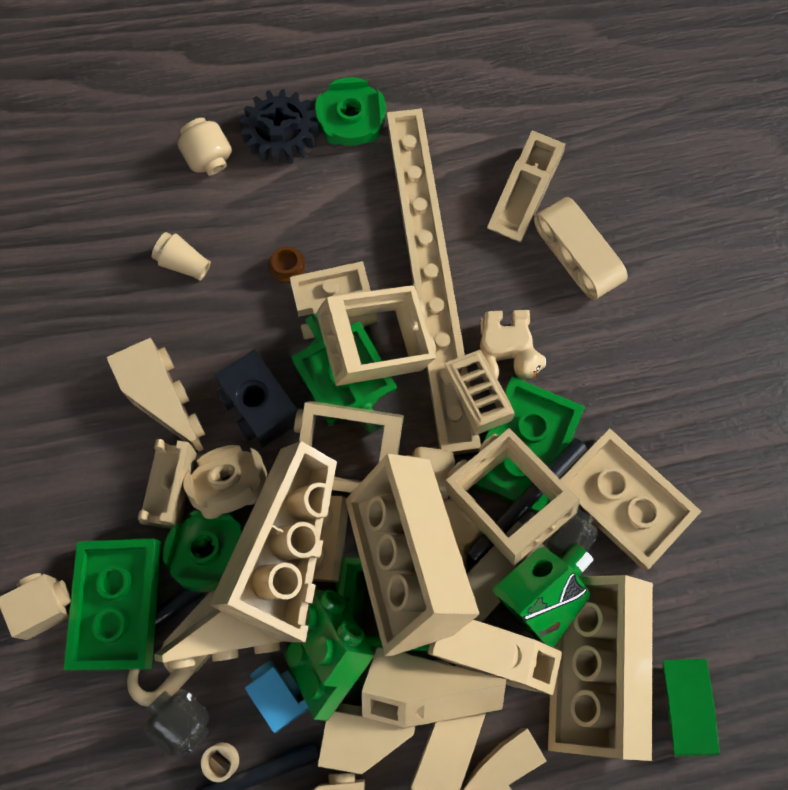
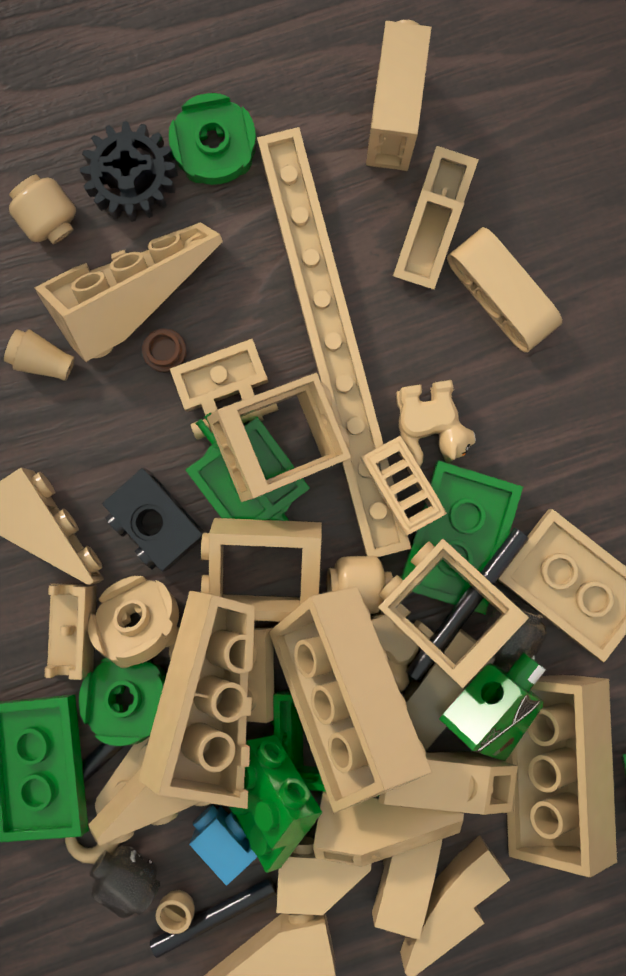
camera: 10 degrees left, 15 degrees up
(243, 224) = (110, 302): none -> tan wedge
(502, 92) = (398, 94): none -> tan window

